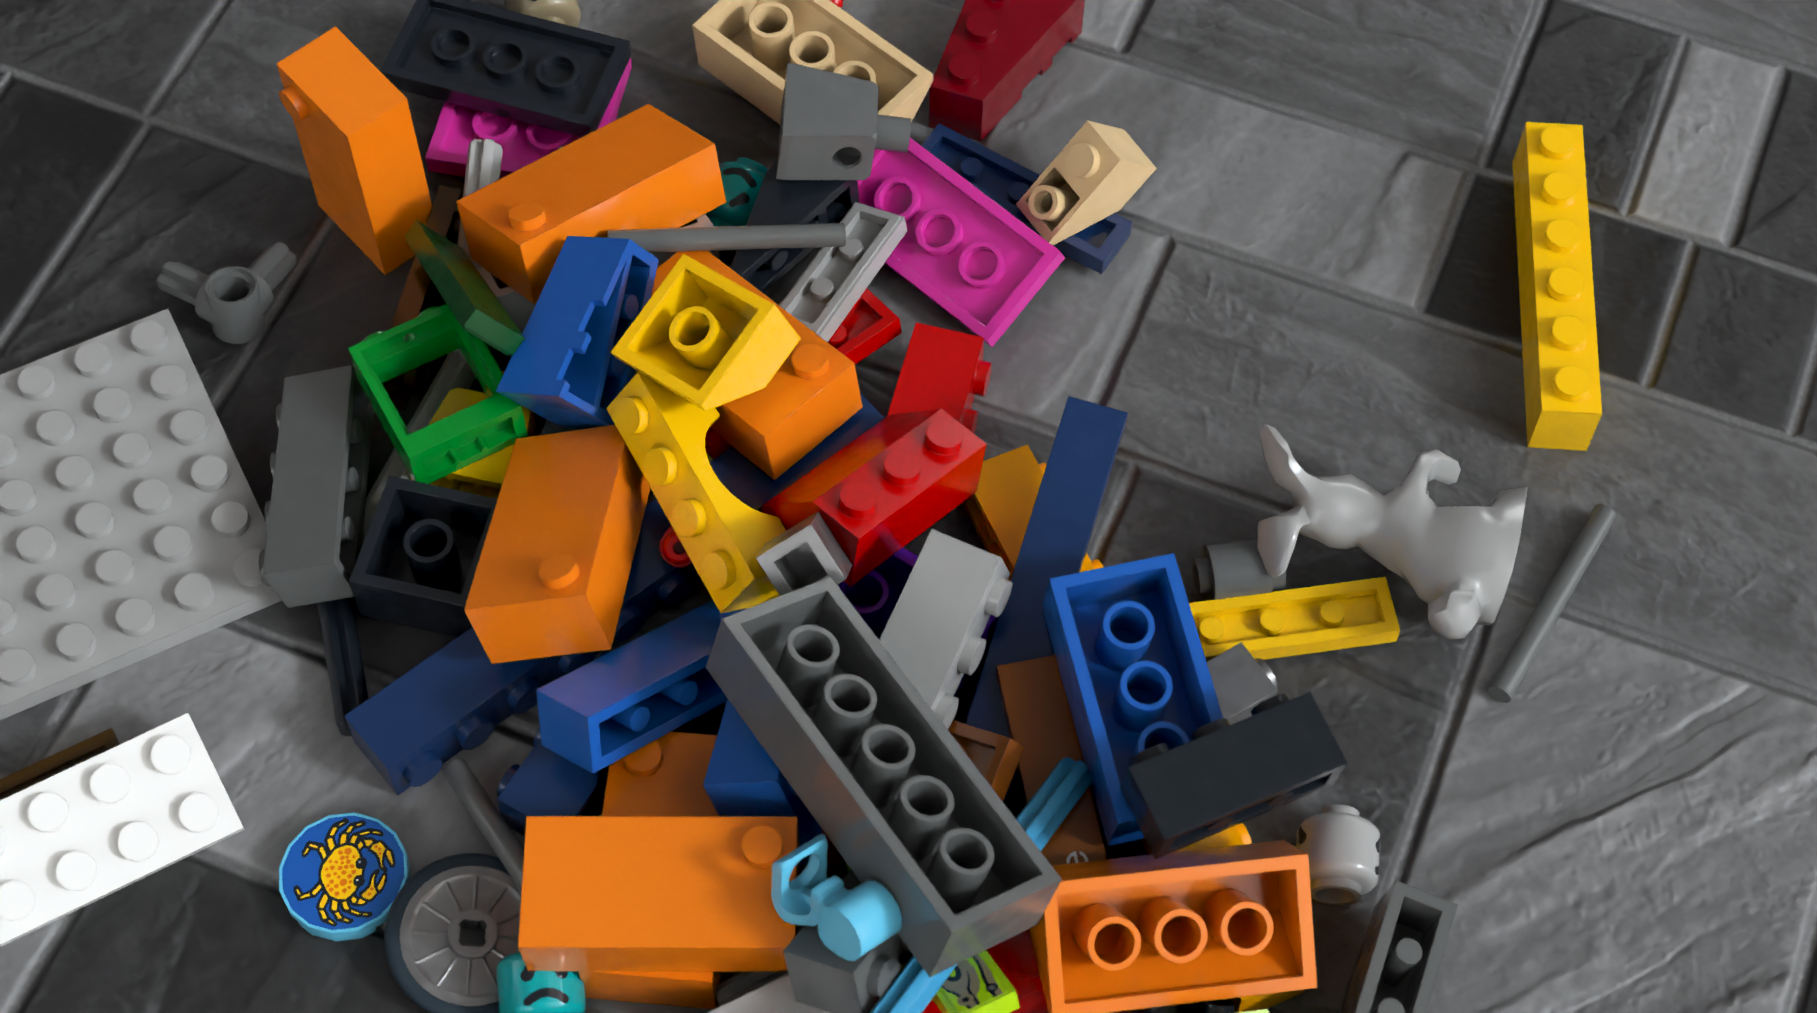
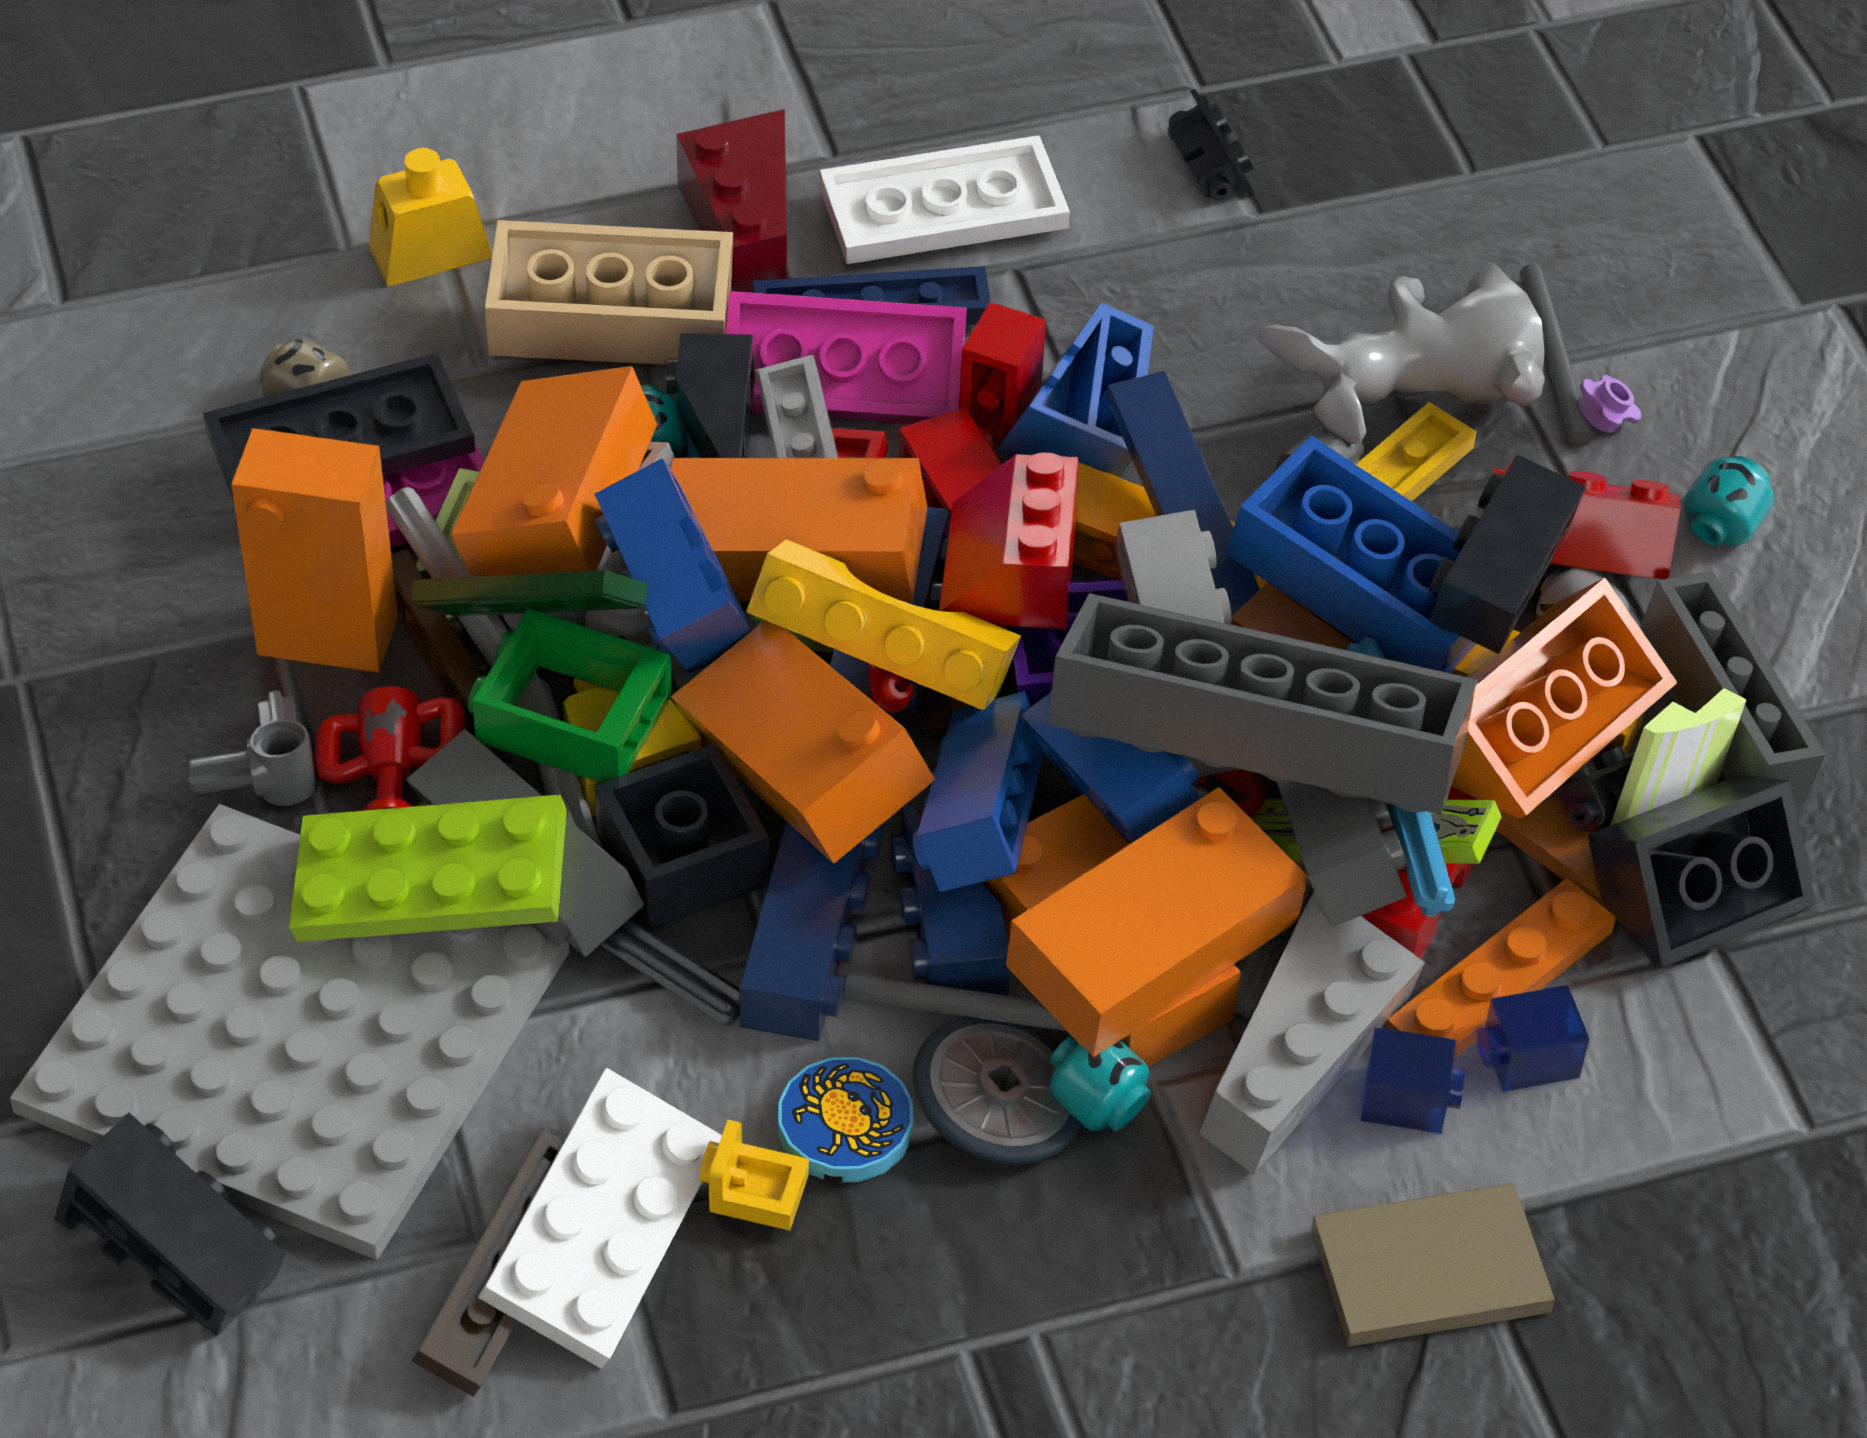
camera: 40 degrees left, 10 degrees down
(221, 463) = (429, 868): none -> lime plate
(222, 877) = (752, 1180): none -> yellow bracket
(314, 345) = (388, 739): none -> red piece
(707, 337) = (799, 489): yellow slope -> none
(735, 237) = (722, 426): dark grey bar -> none
(804, 556) = (1037, 608): flat silver brick -> none
(833, 126) = (705, 305): dark grey torso -> none
(846, 919) = (1351, 811): medium azure leg -> none
(1039, 326) = (1001, 368): none -> red brick
(1085, 182) = (931, 248): tan slope -> none
(1114, 371) = (1070, 406): none -> blue wedge
(1200, 151) = (943, 199): none -> white plate
(1397, 788) = (1620, 527): none -> red slope
(1435, 213) = (1223, 164): none -> black hinge
(1535, 679) = (1607, 403): none -> medium lavender plate
(1556, 288) = (1349, 132): yellow brick -> none
(1565, 843) = (1730, 500): none -> teal head

